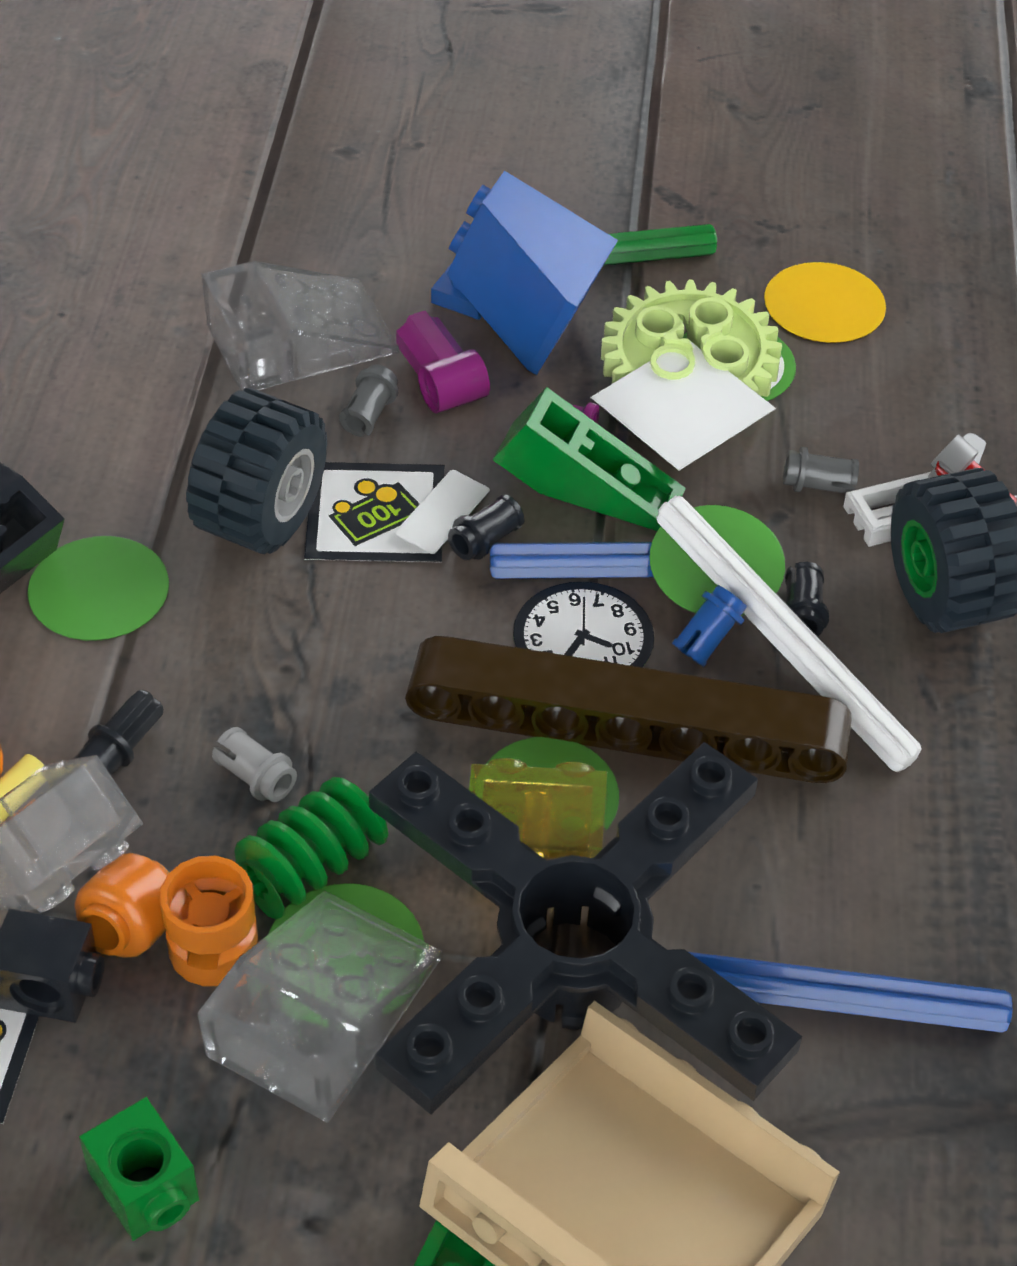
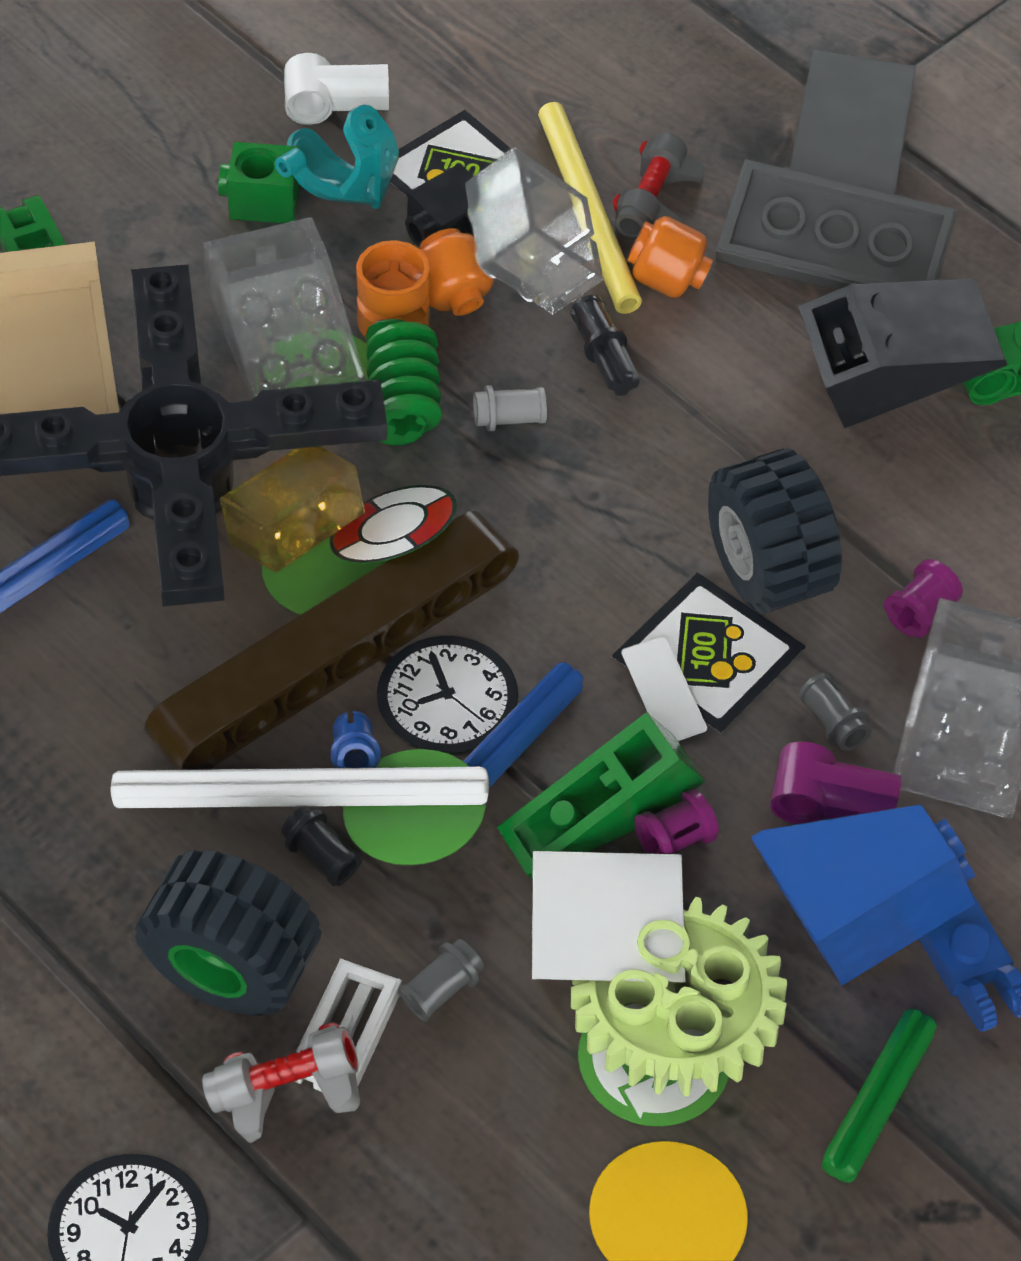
camera: 130 degrees right, 5 degrees up
(49, 1138) = (334, 179): none -> teal helmet
(98, 588) = (785, 419): bright green sticker -> none
(202, 400) = (916, 604): none -> magenta bush
(475, 534) = (607, 678): black pin -> none
(477, 721) = (395, 524): none -> sticker

